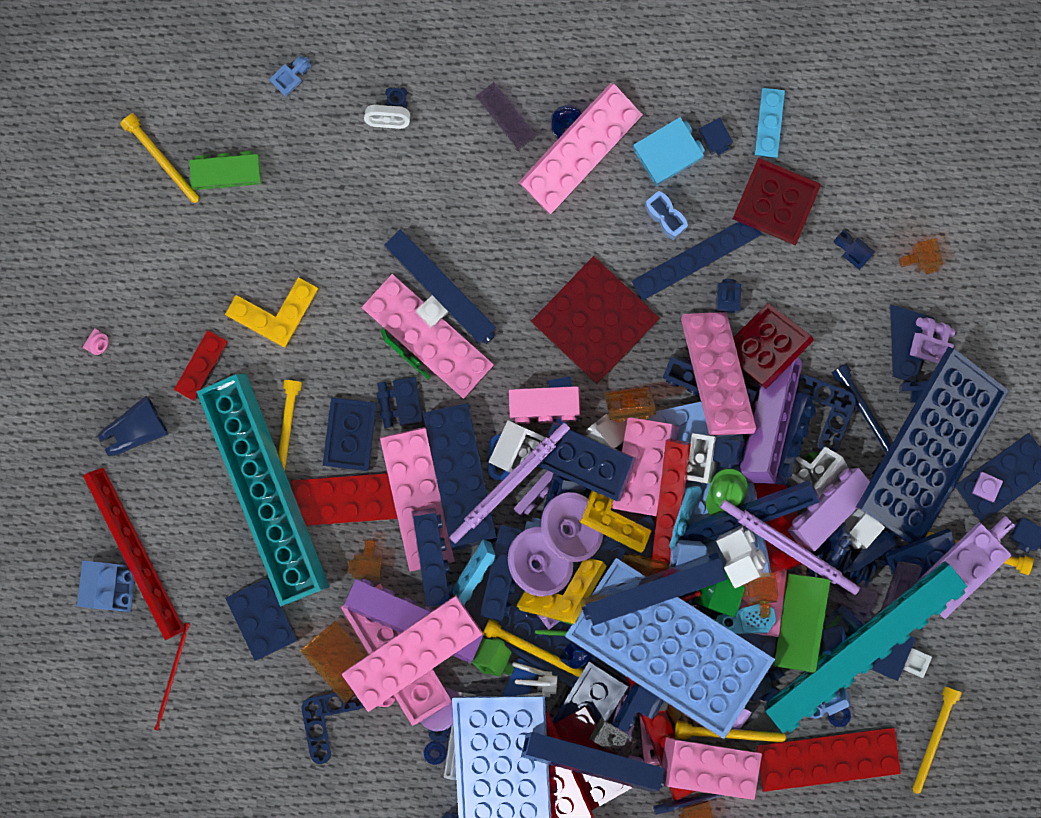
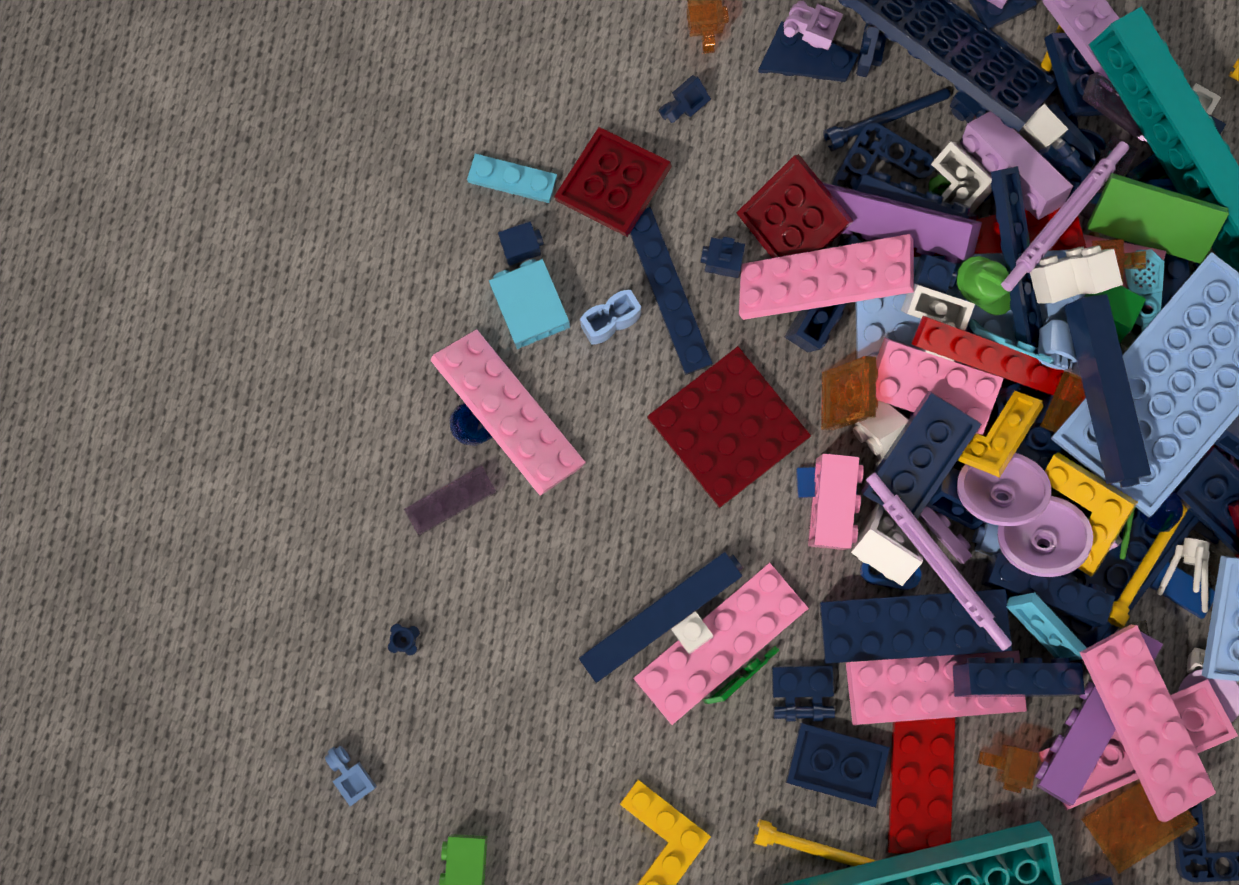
camera: 80 degrees left, 5 degrees down
(387, 116) = (425, 654): white plate -> none
(493, 657) = (1155, 616): bright green brick -> none

